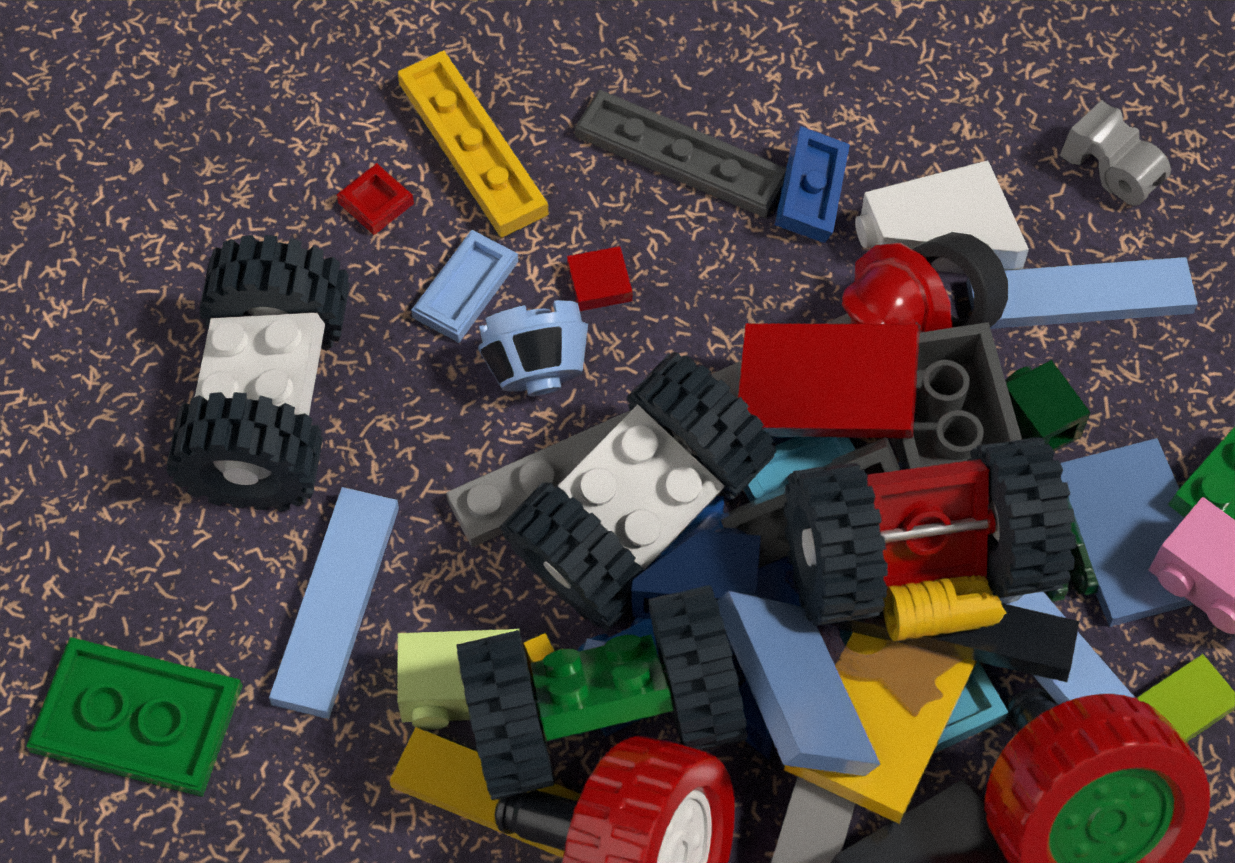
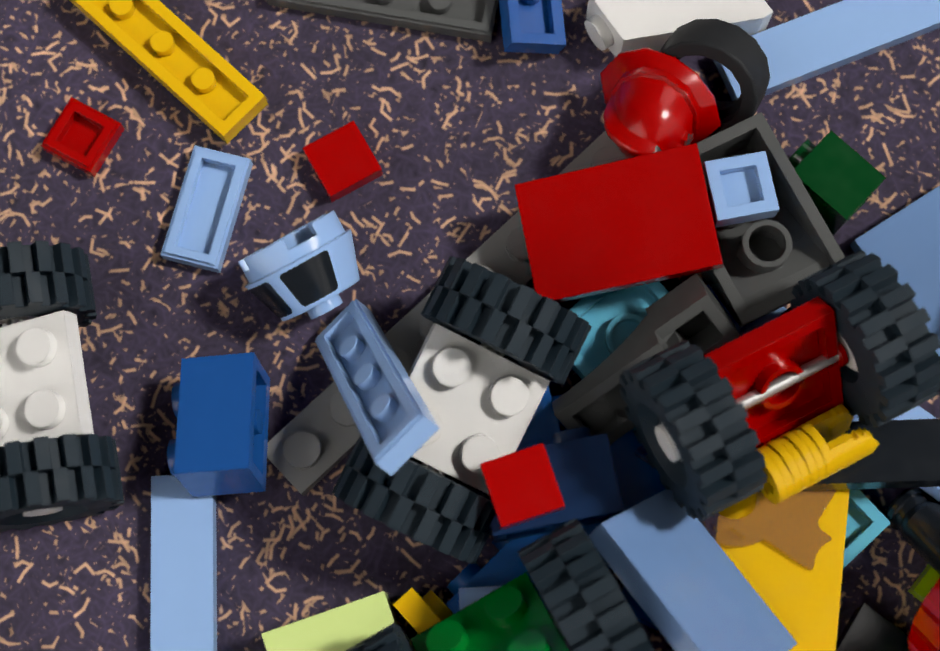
camera: 15 degrees left, 15 degrees up
(419, 456) = (220, 425): none -> blue brick
(566, 444) = (375, 387): none -> light blue tile
(670, 553) = (522, 486): none -> red tile
(947, 377) = (740, 189): none -> light blue tile

